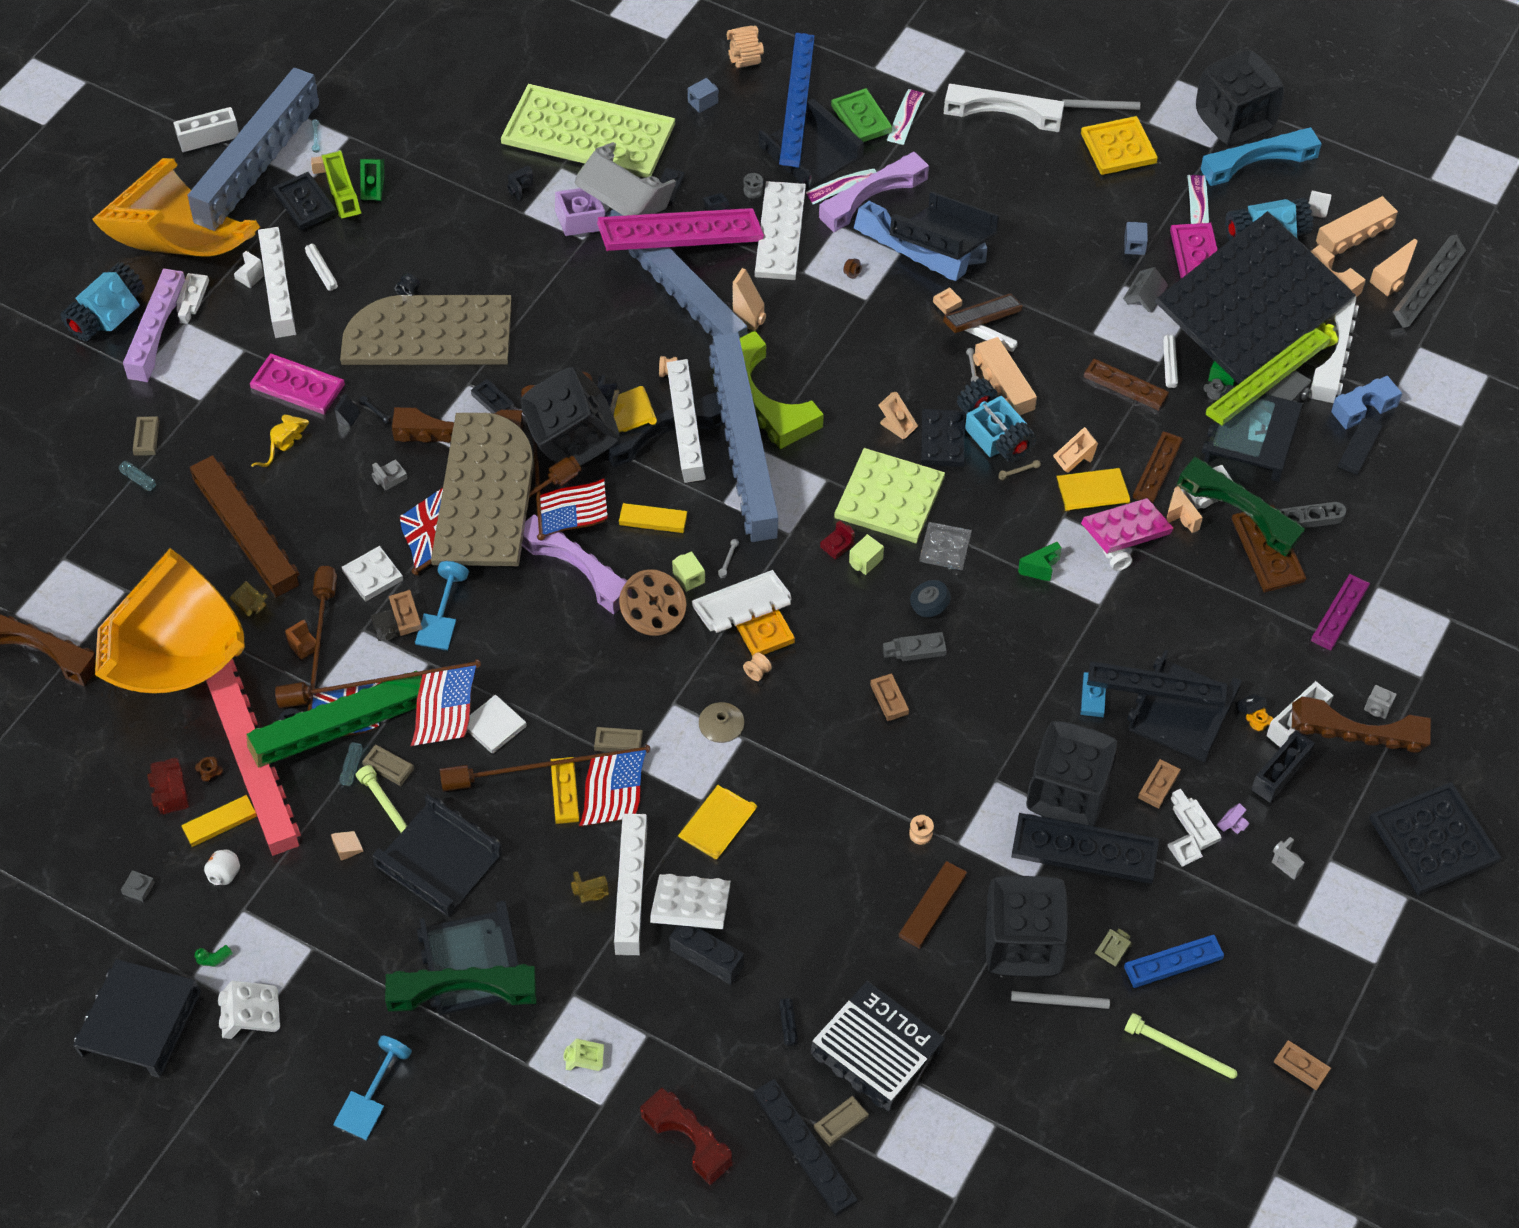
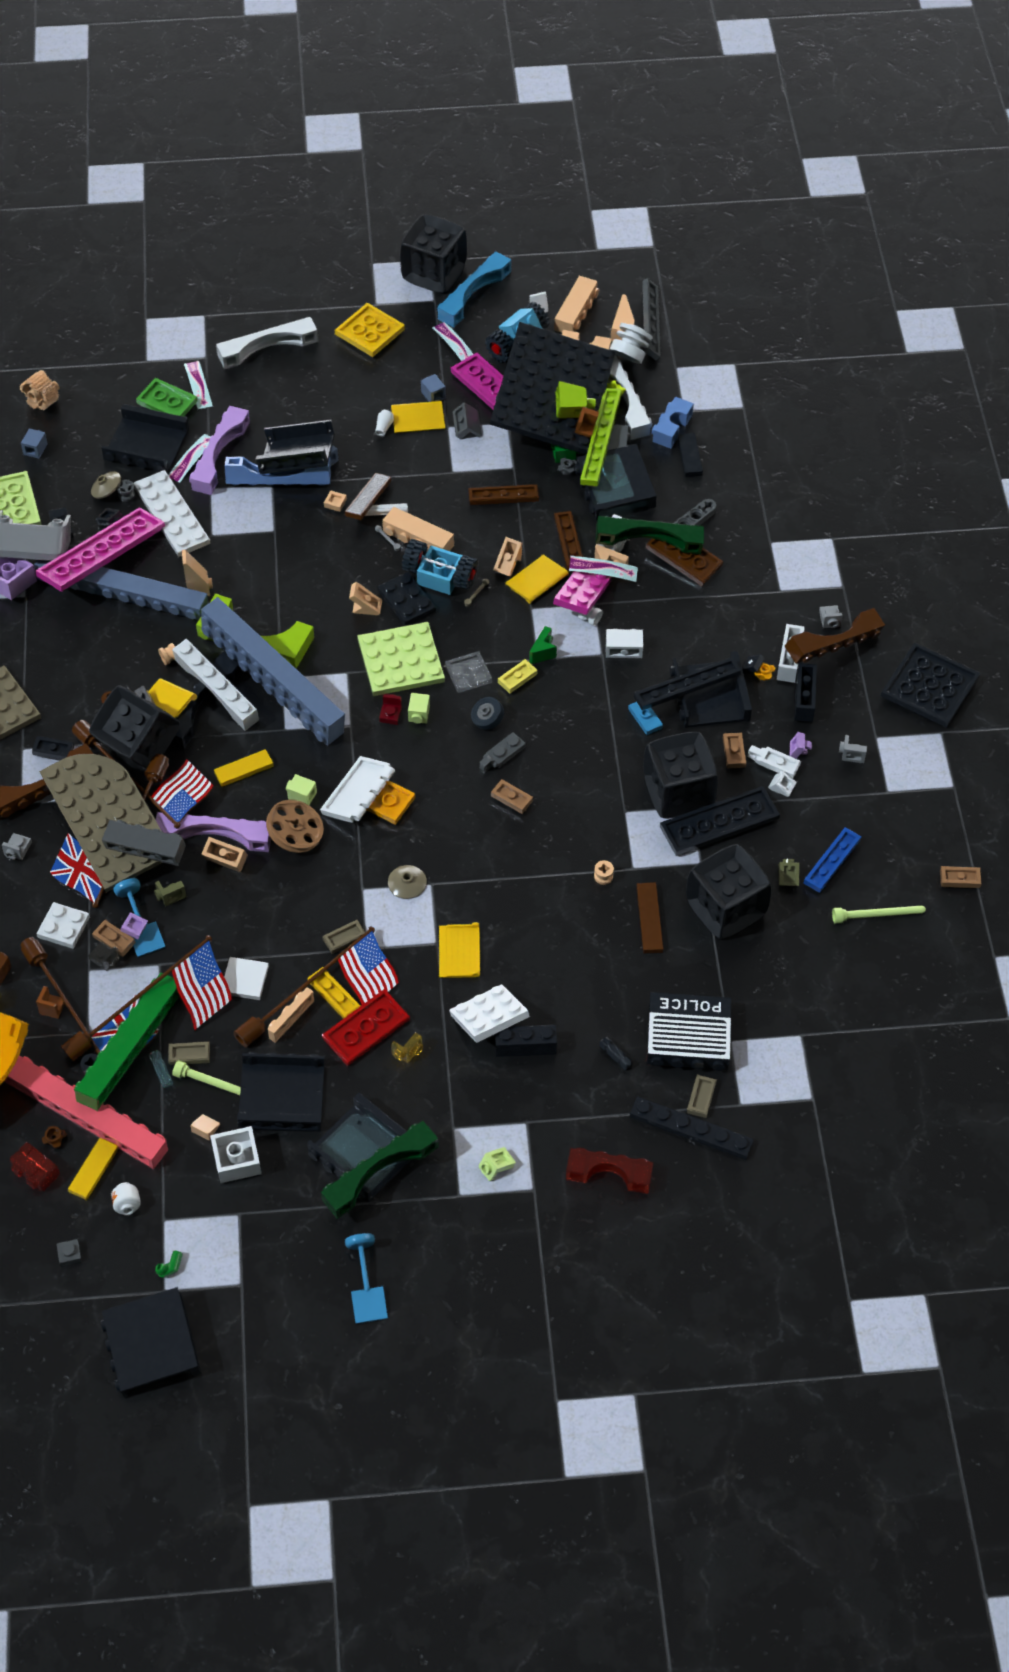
camera: 35 degrees left, 0 degrees up
(248, 1007) = (227, 1283): white bracket -> none
(348, 888) = (235, 1154): none -> white brick
(429, 611) = (134, 925): none -> lavender plate
(489, 601) = (170, 894): none -> olive bracket
(493, 535) = (144, 842): none -> dark grey brick
(506, 785) = (290, 1014): none -> light nougat plate
(565, 591) = (224, 854): none -> light nougat brick
(567, 842) = (365, 1027): none -> red tile
(630, 884) = (451, 1046): white arch -> none
(723, 572) = (324, 778): light grey hinge -> none
(738, 169) = (106, 485): none -> dark tan dish
(757, 666) = (404, 828): light nougat wheel -> none
(797, 100) = (111, 411): blue plate -> none
(852, 268) = (248, 512): reddish brown plate -> none
(992, 578) = (517, 676): none -> light yellow plate
(1060, 246) = (384, 421): none -> white cone
(1060, 999) = (779, 929): light grey bar -> none
(1100, 259) = (418, 417): none -> yellow piece
(1101, 104) = (335, 306): light grey bar -> none
(1129, 605) = (624, 643): none -> white brick
(1167, 515) = (603, 567): none -> sticker
(1170, 361) = (521, 462): white axle -> none
(1260, 322) = (571, 399): none -> lime torso
(1260, 352) = (586, 422): none -> dark orange panel
(1340, 612) = (760, 572): magenta tile -> none
(1380, 294) = (632, 340): none -> white wheel

